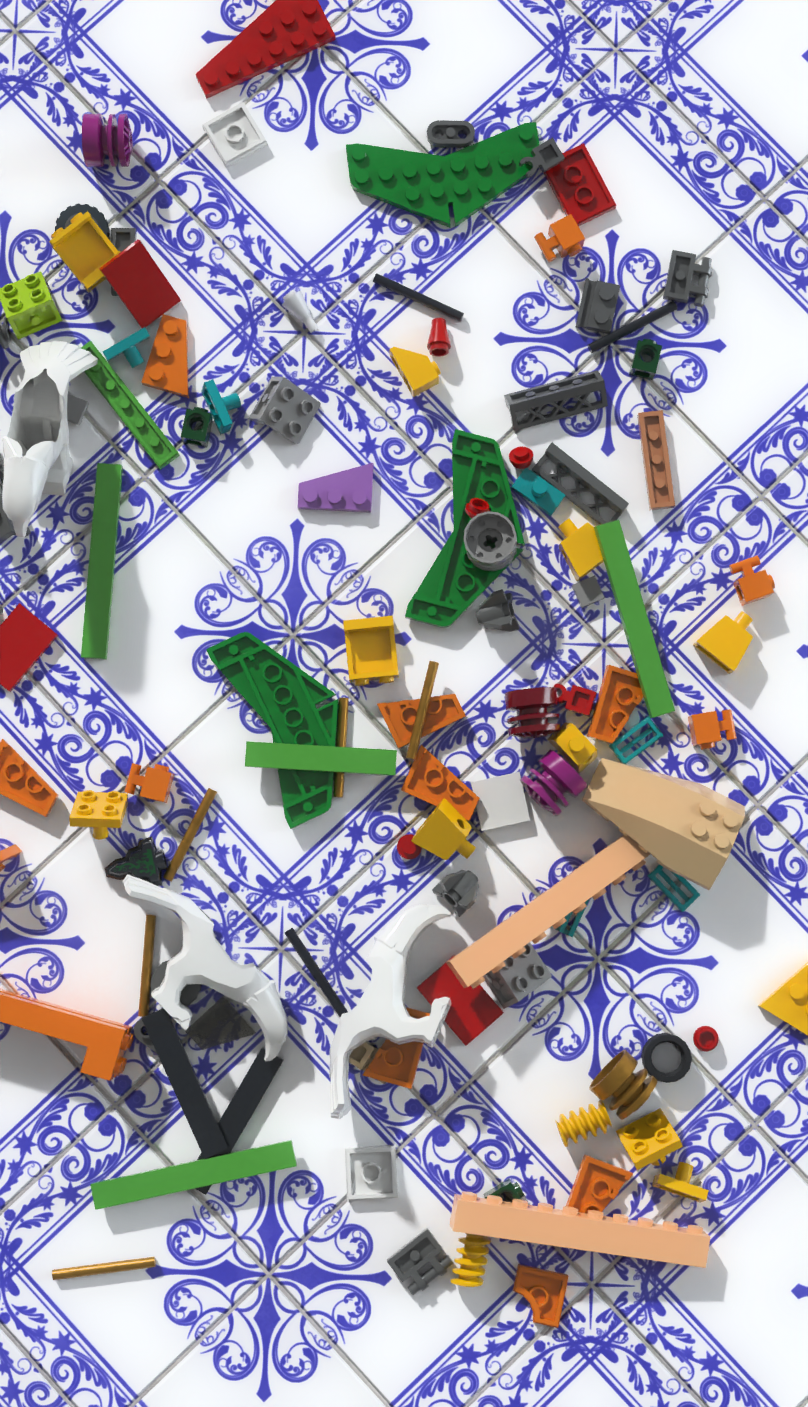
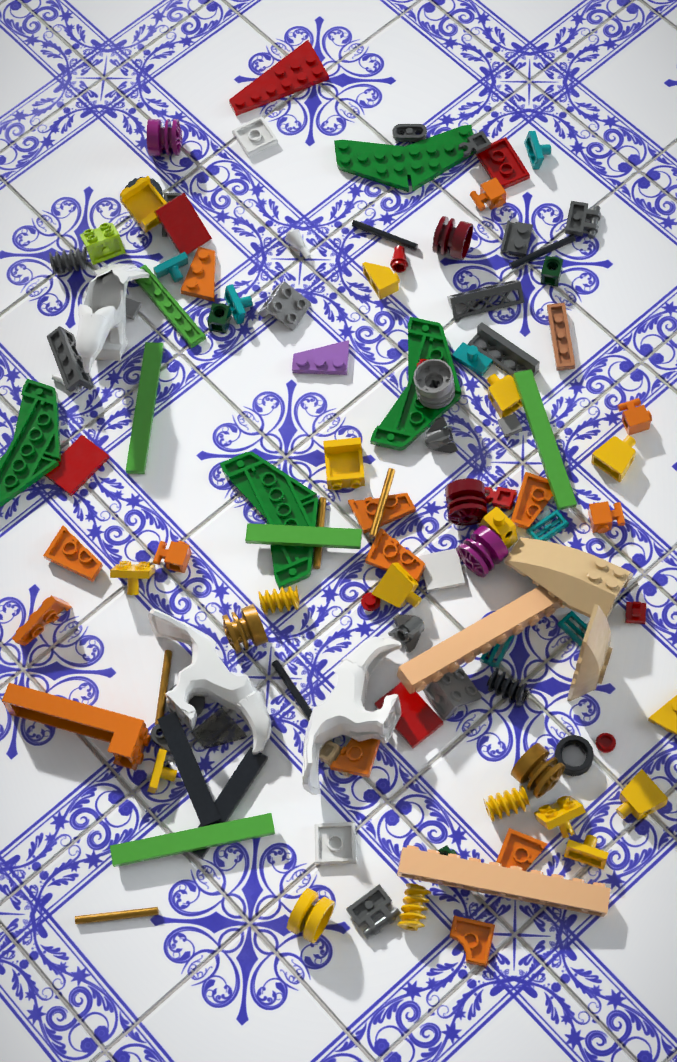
camera: 10 degrees right, 20 degrees down
(141, 862) = (164, 605): black rock -> none
(148, 1083) = (160, 771): none -> yellow tile
(190, 834) = (202, 592): pearl gold bar -> none
(248, 892) = (244, 629): none -> pearl gold wheel
(291, 847) = (279, 600): none -> yellow piece
(342, 1275) = (310, 915): none -> yellow wheel
(512, 310) = (450, 237): none -> dark red wheel
(521, 457) = (459, 335): red plate -> none
(585, 968) = (508, 688): none -> black piece
(625, 166) = (535, 150): none -> teal tile
(702, 940) = (592, 657): none -> tan wedge
(746, 861) = (635, 612): none -> red tile
(747, 1113) = (641, 797): none -> yellow torso

